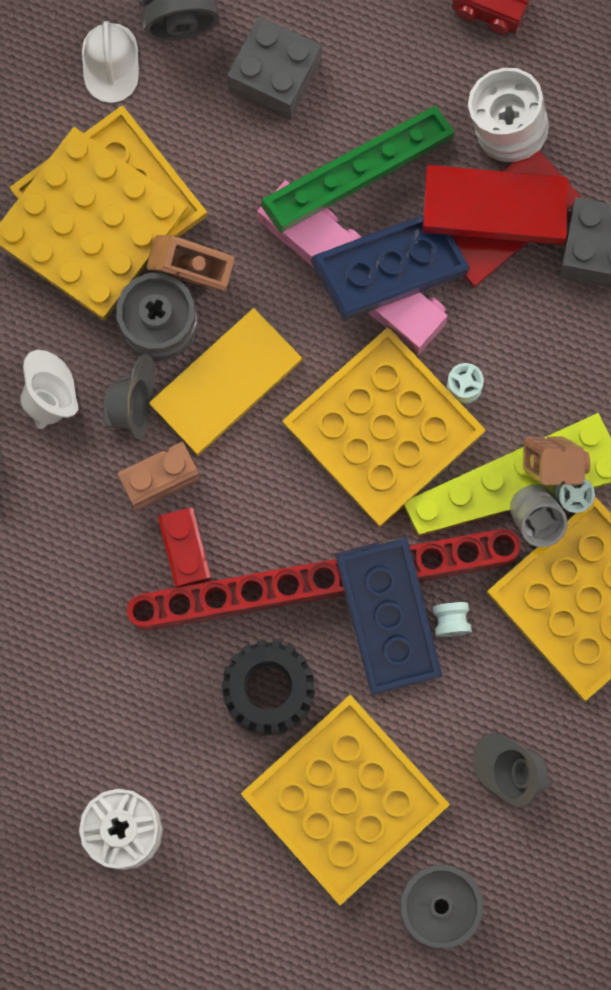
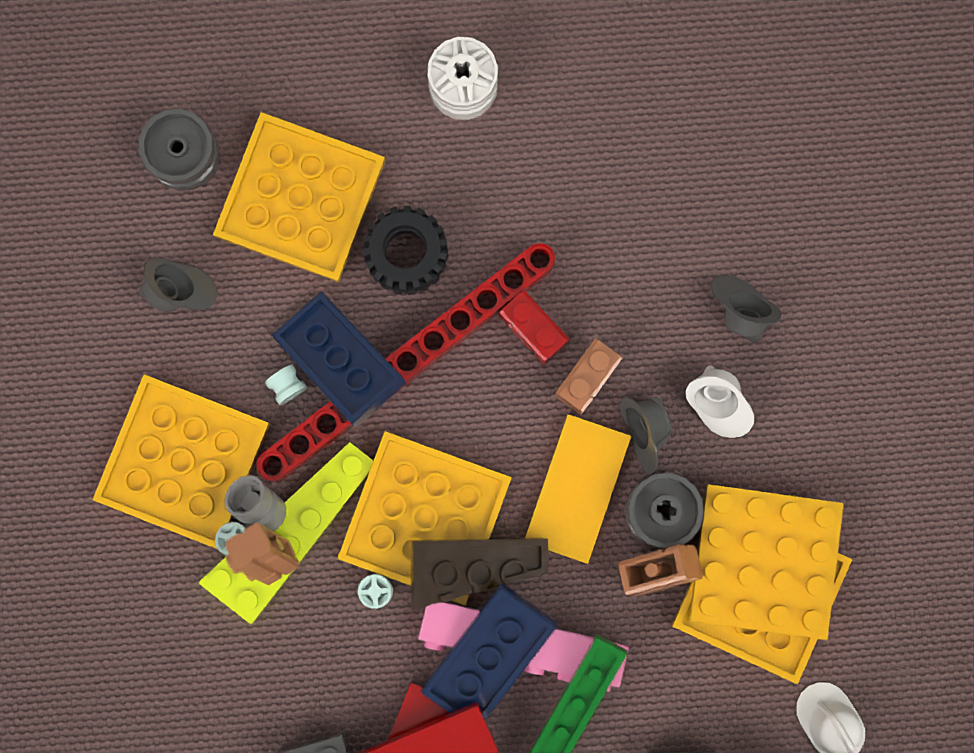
camera: 150 degrees right, 5 degrees up
(367, 357) = (468, 566): none -> dark brown wing

